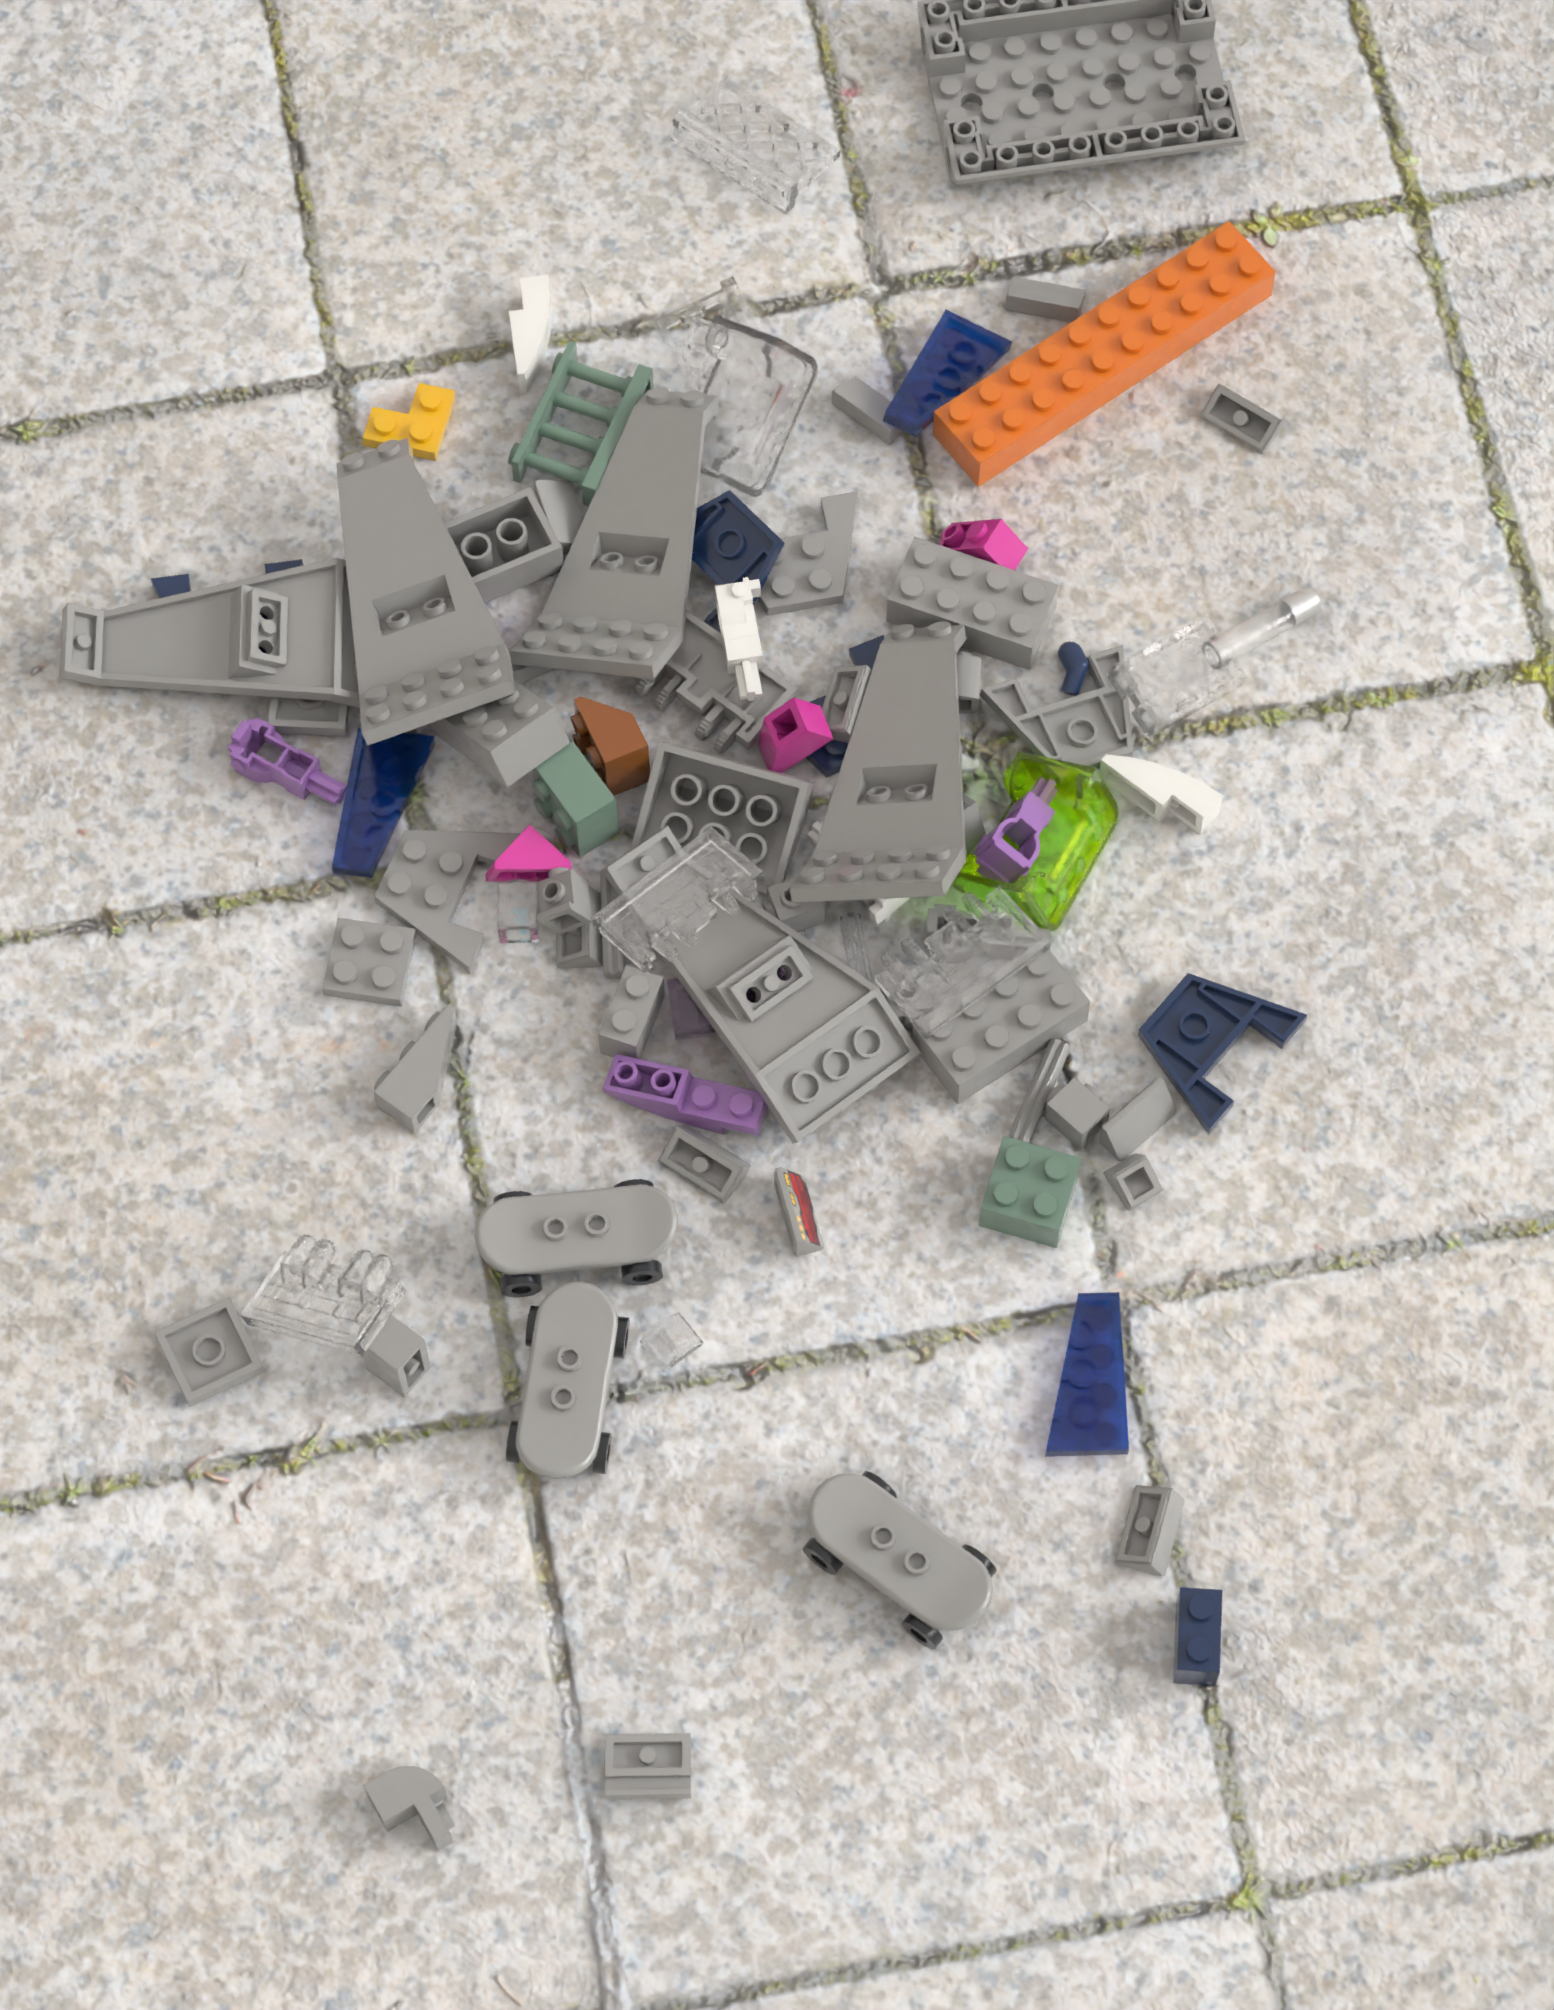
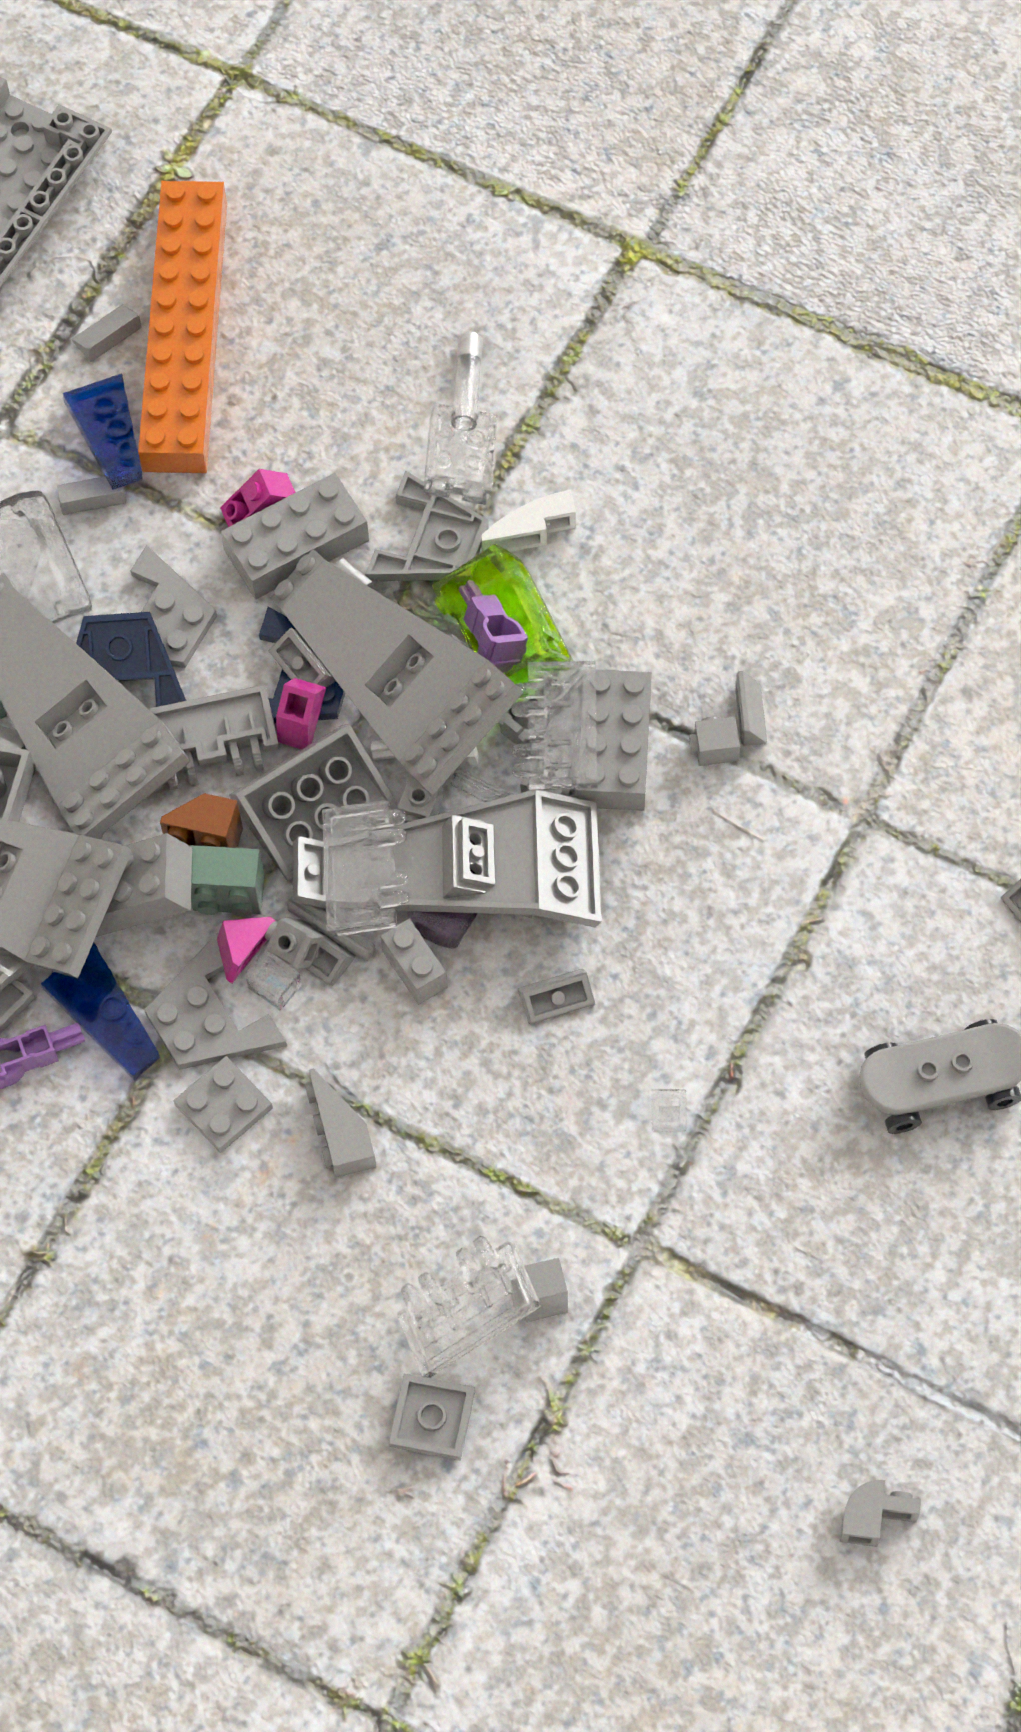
camera: 50 degrees left, 0 degrees up
(568, 1382) = (654, 1192): light grey piece -> none
(575, 1232) = (548, 1107): light grey piece -> none
(648, 1766) = (964, 1339): light grey plate -> none
(683, 1098) = (503, 972): medium lavender slope -> none
(741, 634) = (198, 687): white piece -> none
(797, 1212) = (642, 964): slope -> none
(1029, 1191) = (749, 809): sand green brick -> none
(1039, 1089) = (680, 755): light grey axle -> none
(1076, 666) = (394, 508): dark blue arm -> none
(1091, 1391) = (914, 872): clear blue wing -> none
(1133, 1180) = (787, 744): light grey slope -> none
(1198, 1029) = (717, 630): dark blue wing -> none
(1242, 418) = (302, 284): light grey slope -> none

